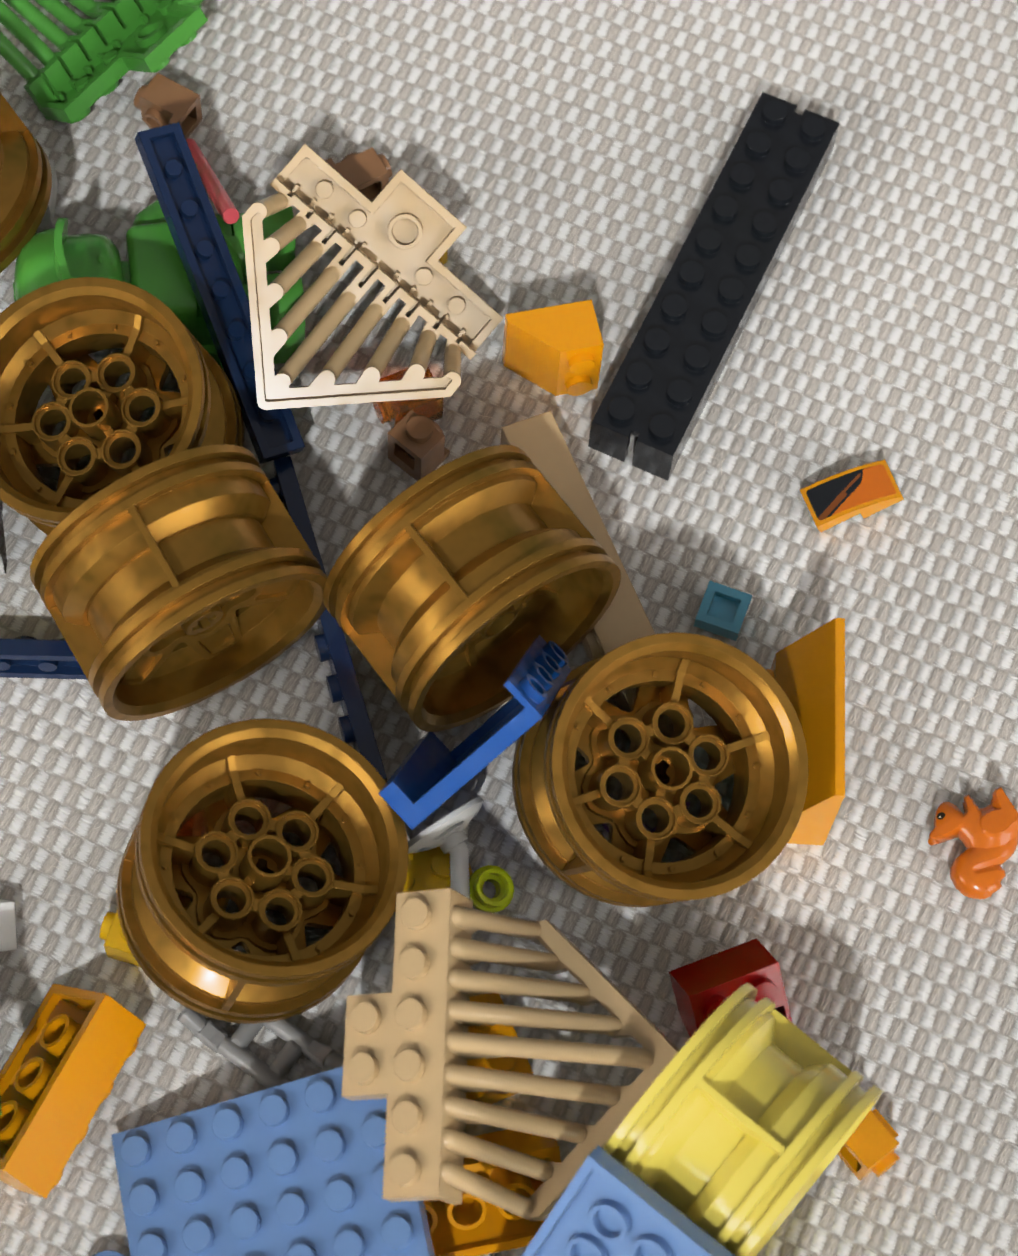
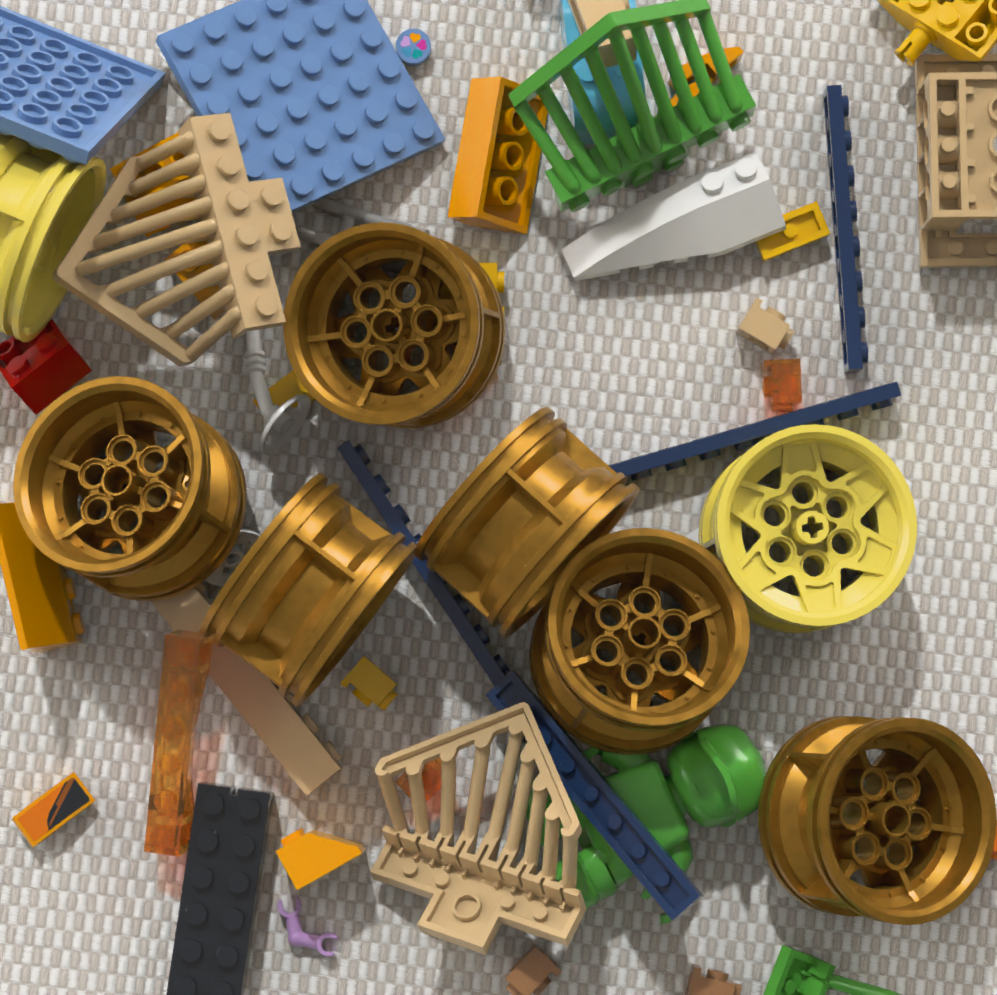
camera: 170 degrees right, 20 degrees up
(213, 186) = (646, 917): coral bar -> none
(422, 440) = (401, 735): medium nougat brick -> none
(435, 773) = (265, 462): blue panel -> none
(503, 886) = (230, 395): neon yellow plate -> none
(605, 289) = (299, 938): none -> lavender arm
(682, 507) = (180, 695): none -> clear orange arch
(722, 610) = (128, 674): medium azure plate -> none

